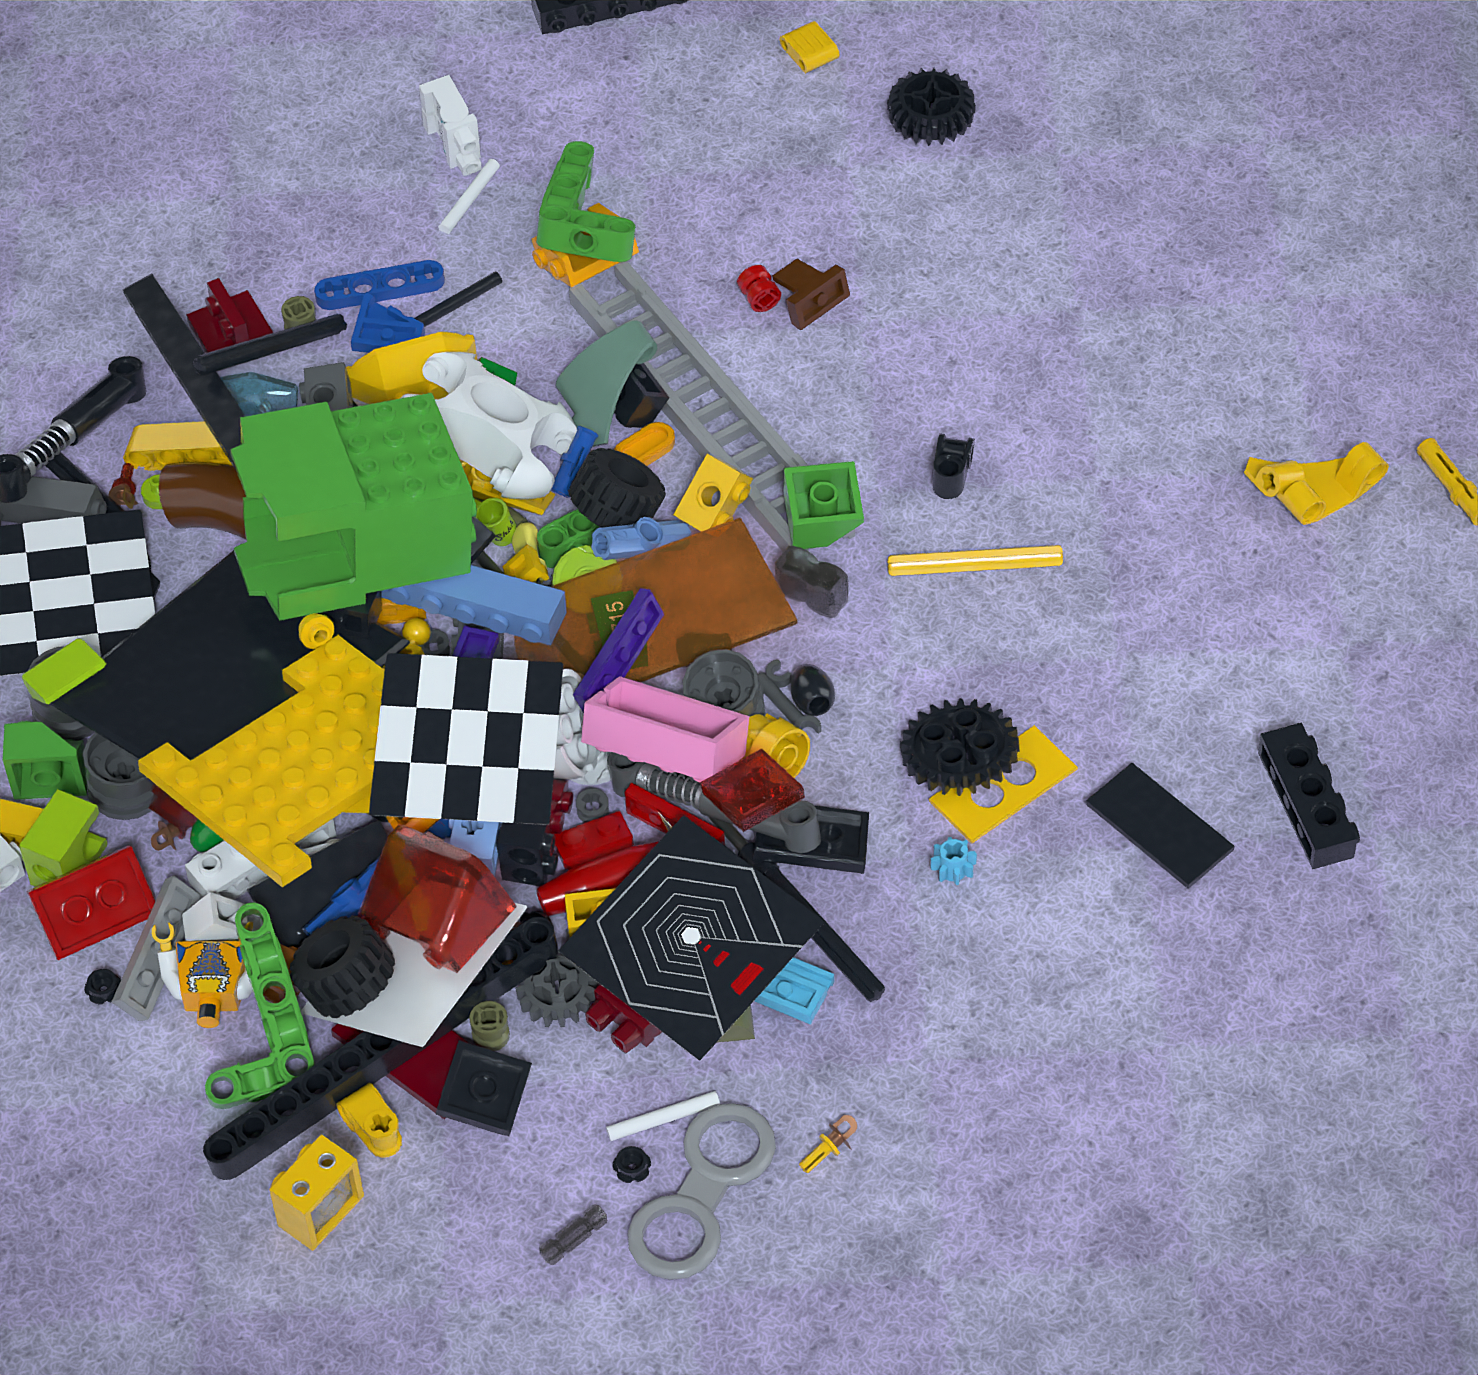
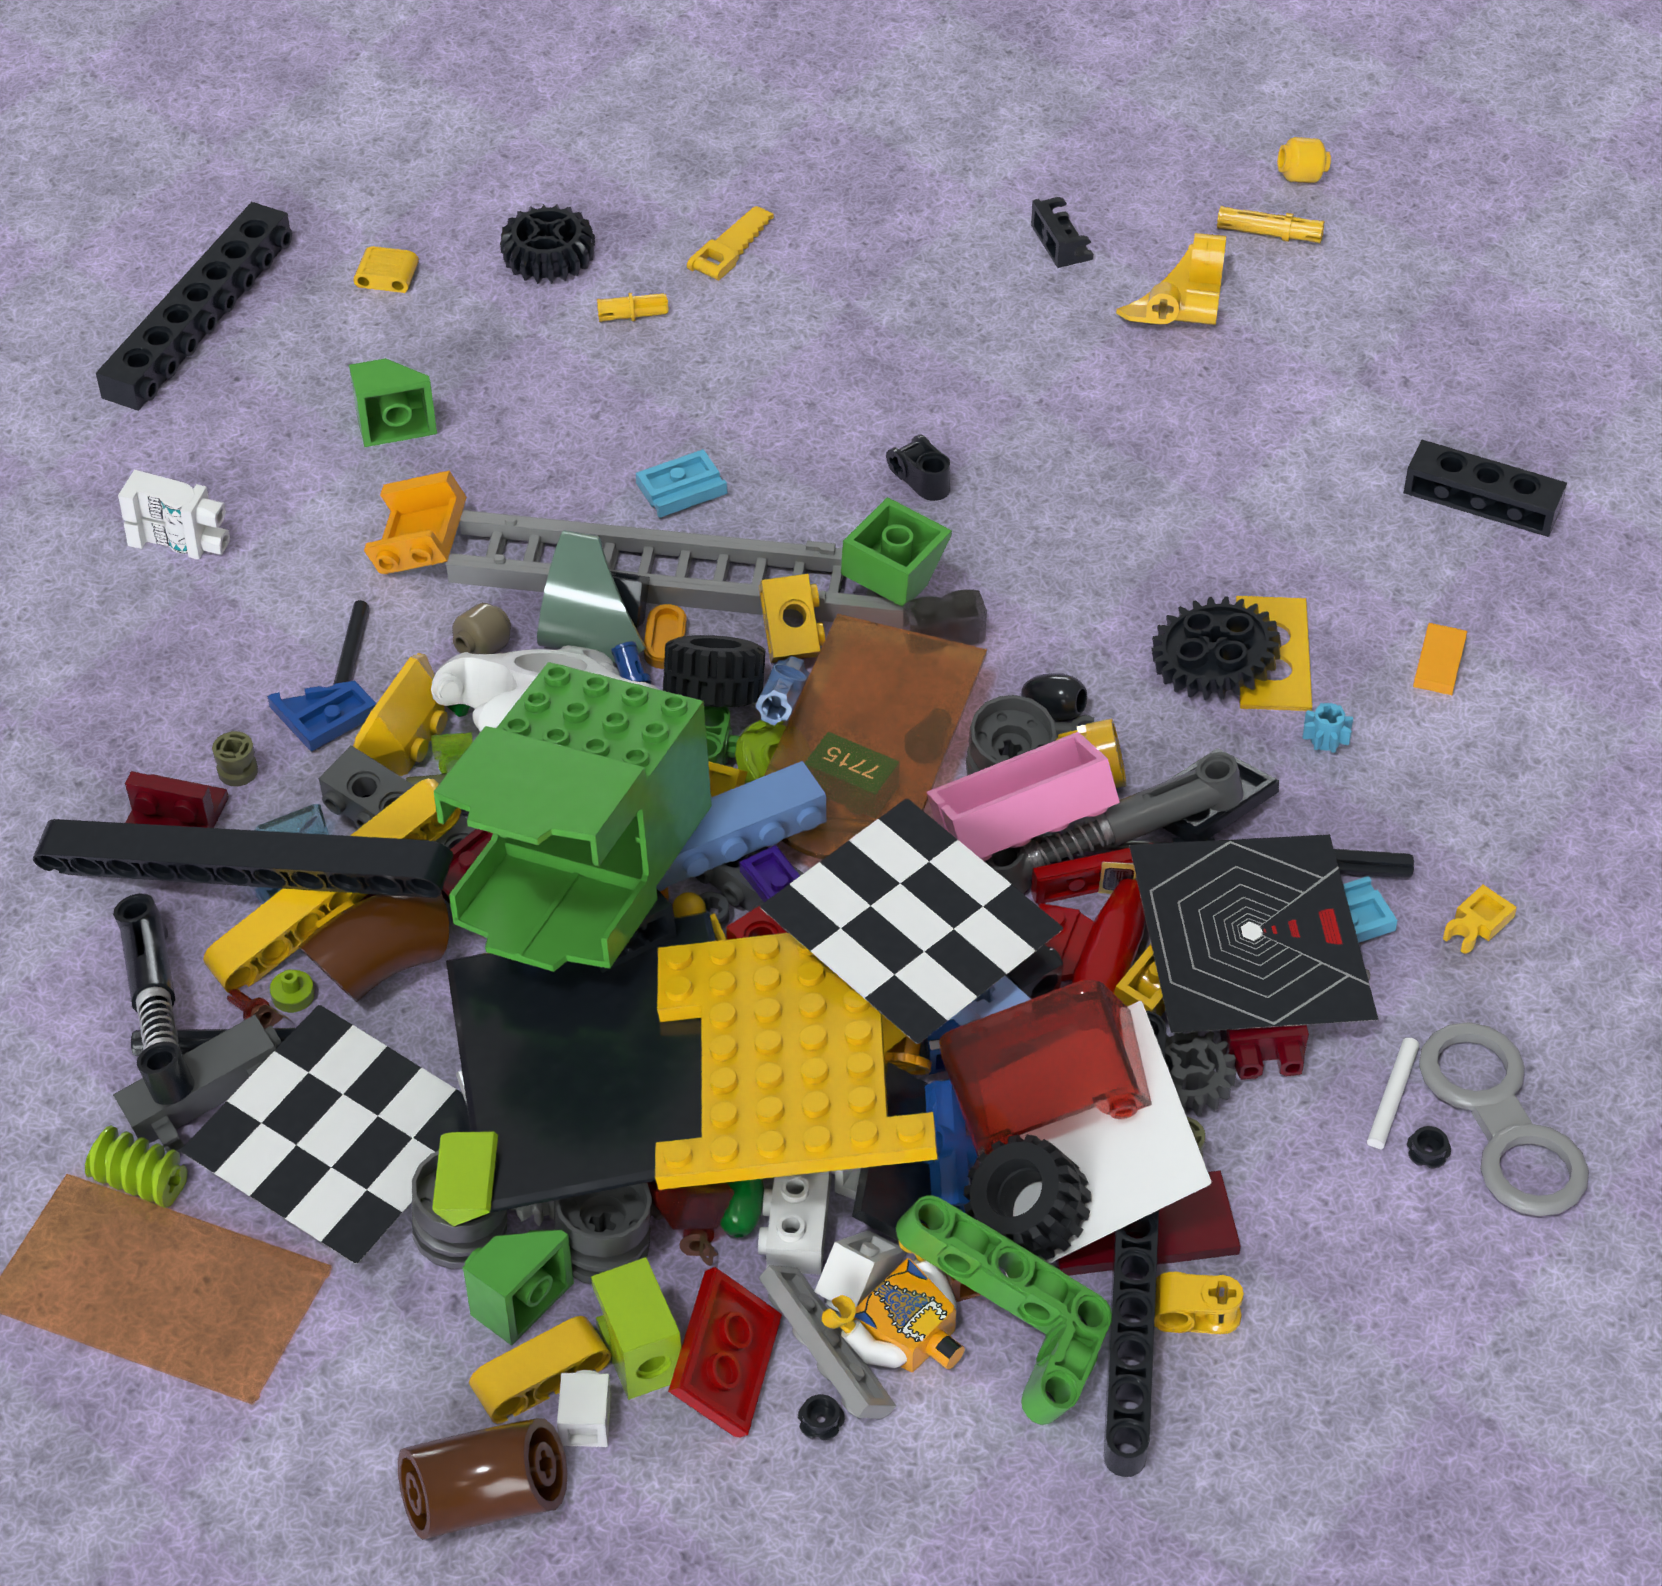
camera: 50 degrees left, 5 degrees down
(269, 344) = (259, 785): black axle -> none
(311, 625) = (644, 955): yellow plate -> none
(316, 1191) = (1253, 1394): yellow piece -> none
(378, 280) = (260, 683): blue beam -> none
(469, 196) = (248, 566): white bar -> none
(483, 1088) = (1249, 1197): black tile -> none
(534, 352) = (481, 630): none -> dark tan head
(563, 220) = (378, 506): bright green beam -> none
(573, 1234) = (1463, 1241): clear smoke axle -> none
(622, 646) = (894, 759): dark purple tile -> none
(671, 150) = (391, 402): none -> bright green slope
(752, 790) = (1163, 778): clear red plate -> none
(760, 290) = (598, 455): red wheel -> none
(788, 350) = (681, 483): none -> medium azure plate
(813, 291) = (644, 420): reddish brown piece -> none
(829, 1144) = (1538, 998): piece -> none
(872, 1064) = (1480, 914): none -> yellow plate
(926, 196) = (632, 306): none -> yellow axle
(975, 560) = (1030, 520): yellow axle -> none
(1057, 200) = (729, 244): none -> yellow piece
(1103, 883) = (1440, 658): none -> light orange tile
(1160, 825) = (1421, 587): black piece -> none
(1290, 368) = (1058, 233): none -> black hinge

